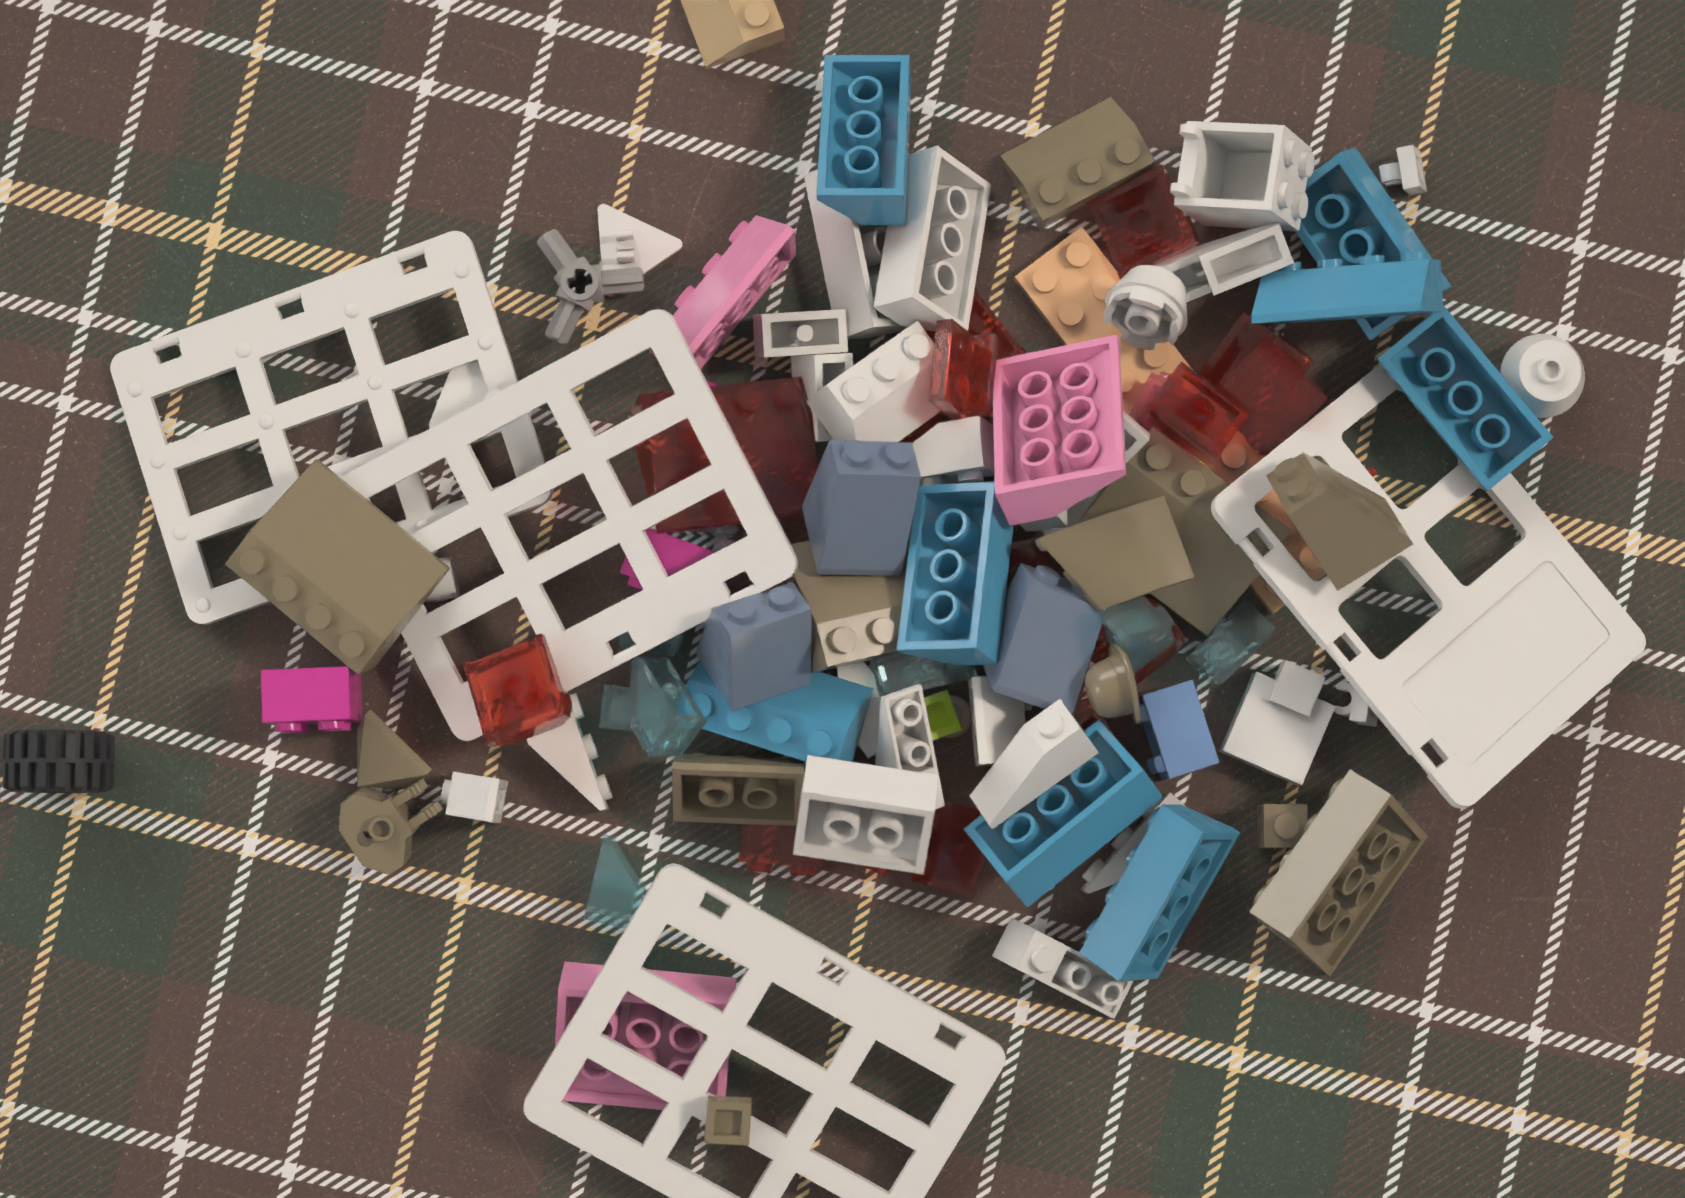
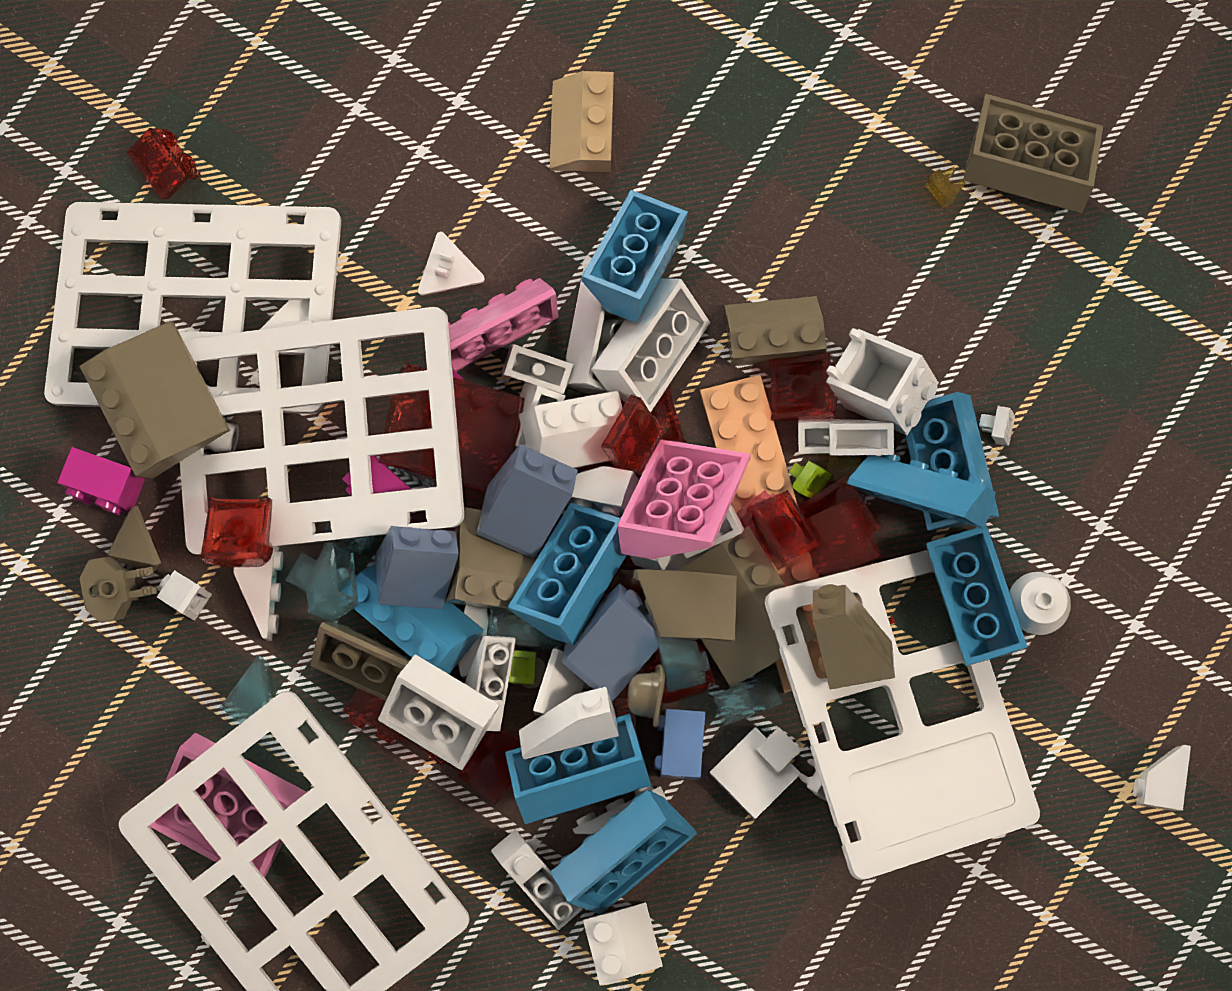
camera: 25 degrees right, 5 degrees down
(207, 256) = (162, 161): none -> clear red bracket
(568, 270) = (397, 268): light grey bush -> none
(727, 1120) = (255, 887): dark tan plate -> none
(1147, 307) = (780, 444): white cone -> none
(1200, 335) = (809, 478): none -> lime tile
(1200, 1003) = (622, 943): none -> white slope
(1230, 305) = (842, 465): none -> clear yellow tile
(1280, 825) = (730, 842): dark tan brick -> none
(1339, 871) = (755, 890): dark tan slope -> none

